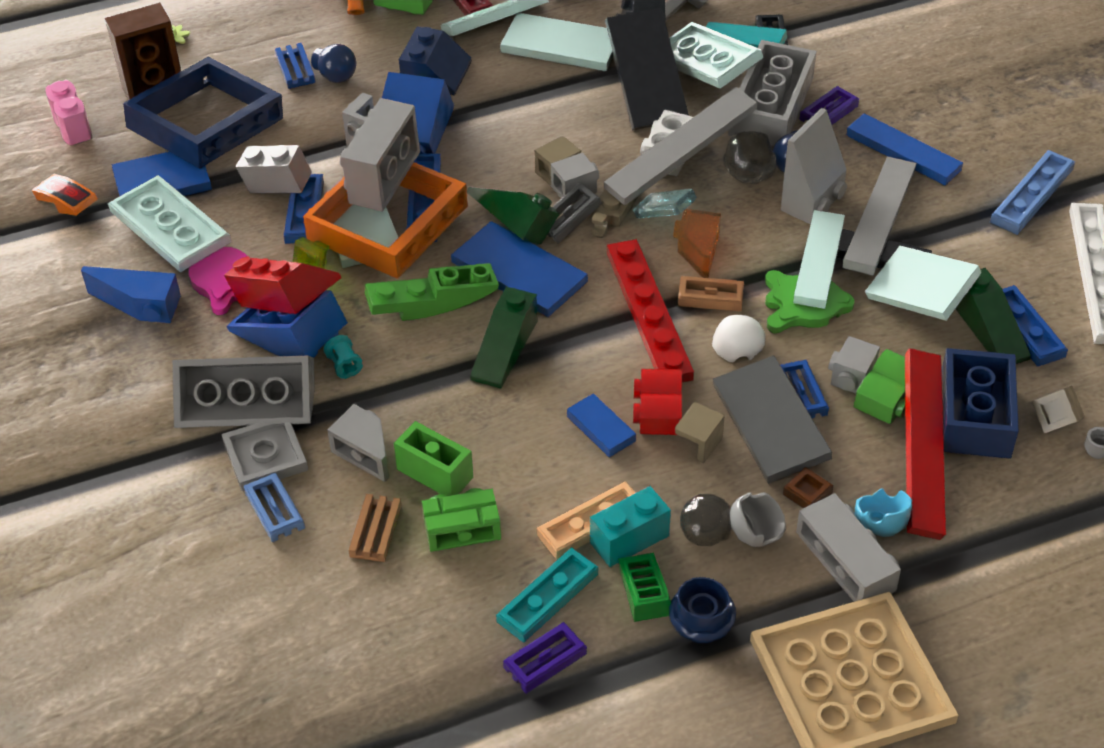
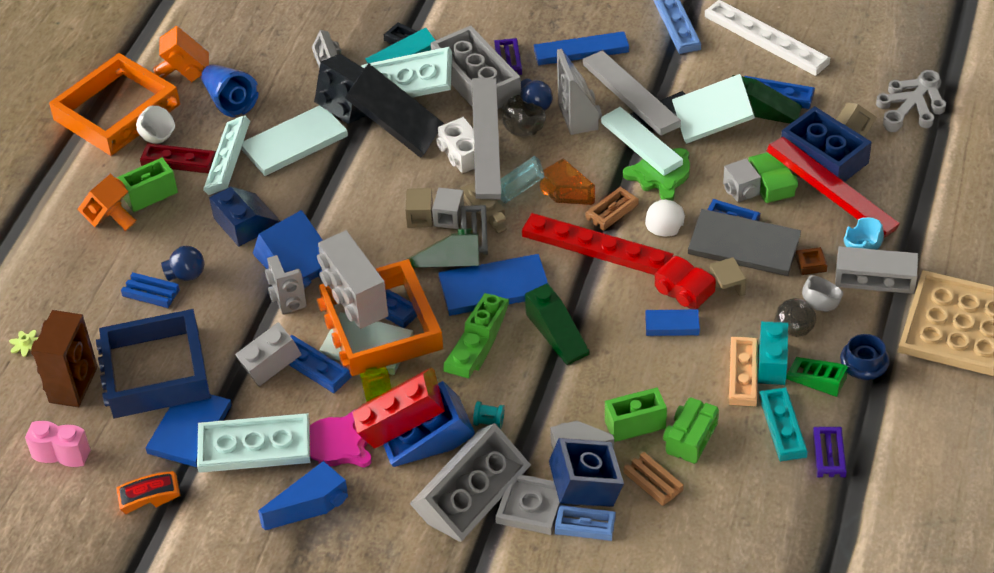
camera: 50 degrees left, 0 degrees up
(318, 463) = (586, 472): none -> dark blue brick

